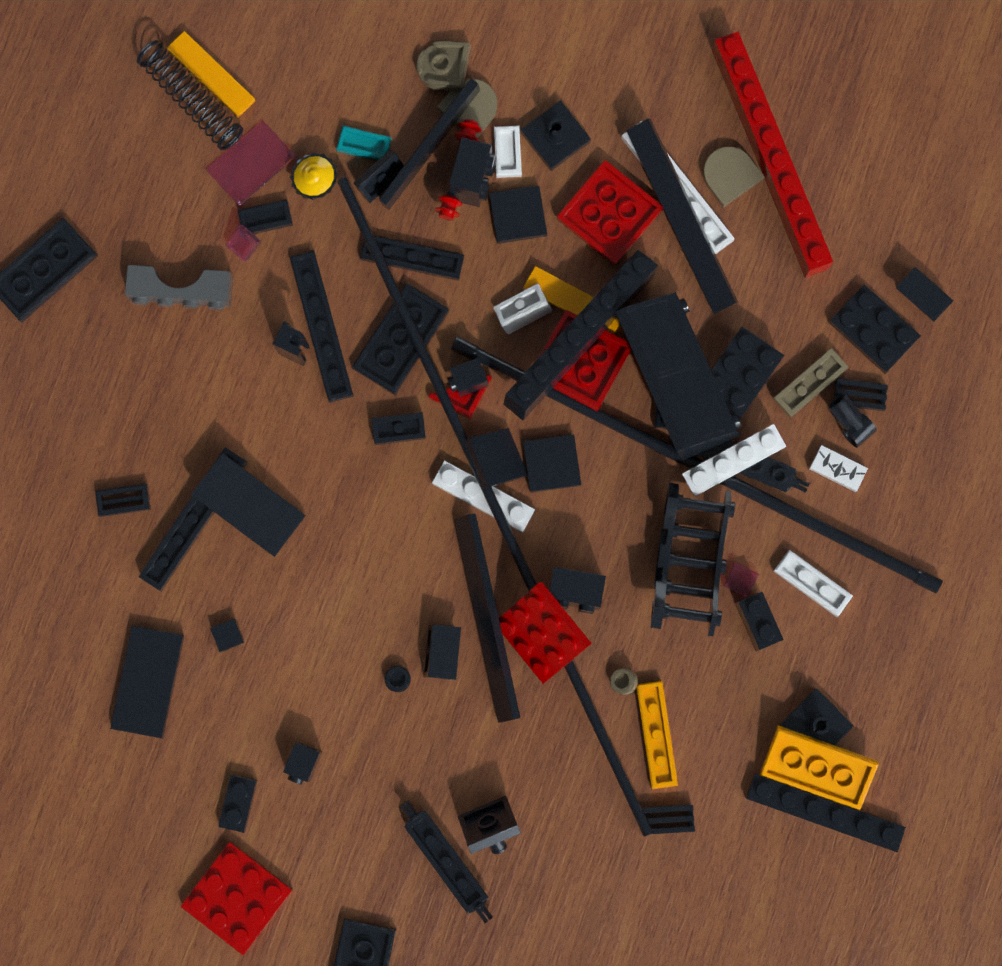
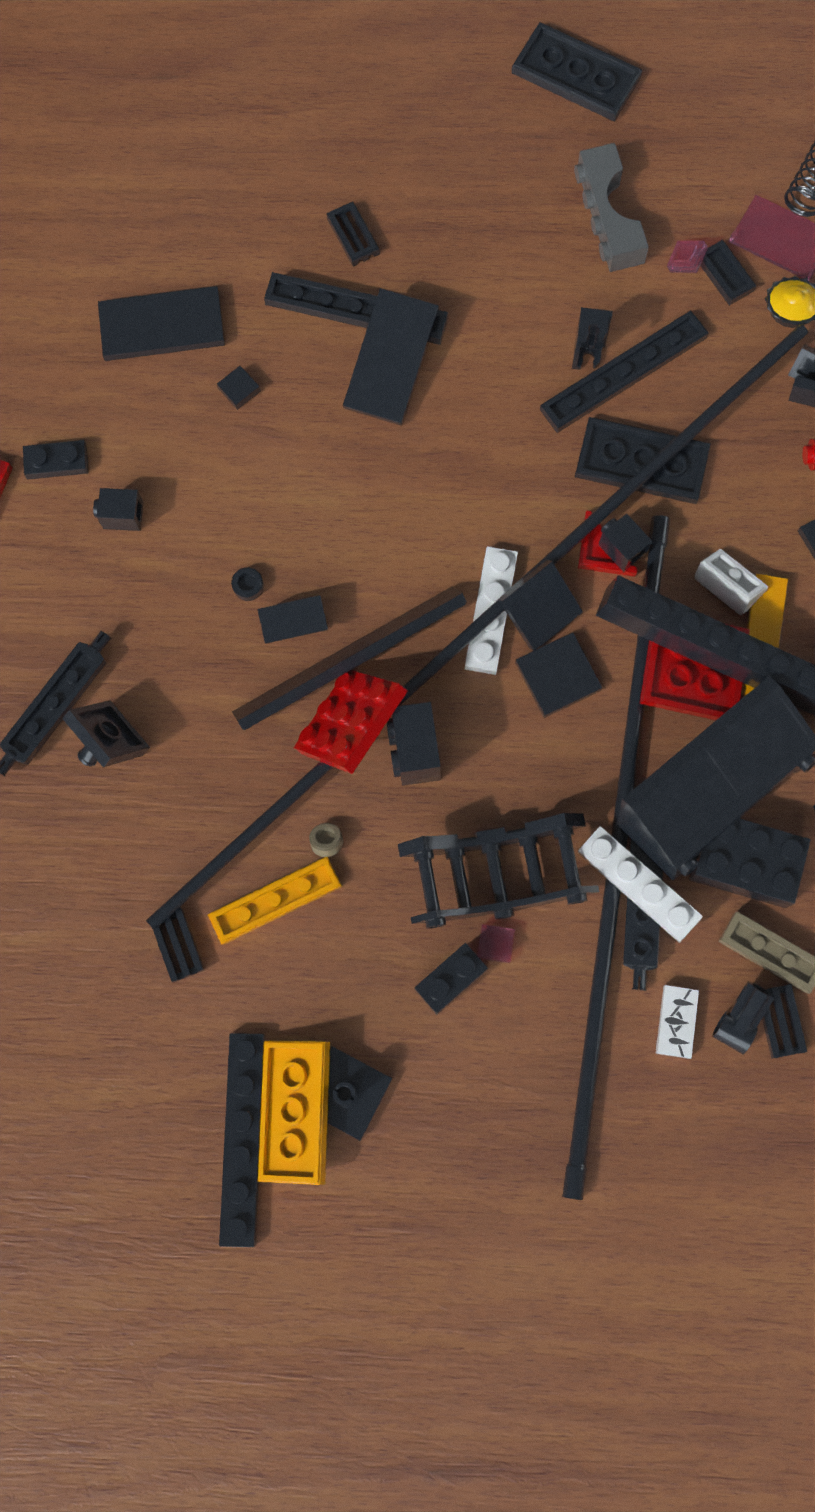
camera: 75 degrees right, 5 degrees down
(398, 428) = (536, 489): black plate -> none
(417, 258) = (744, 447): black tile -> none
(813, 583) = (522, 1034): white tile -> none

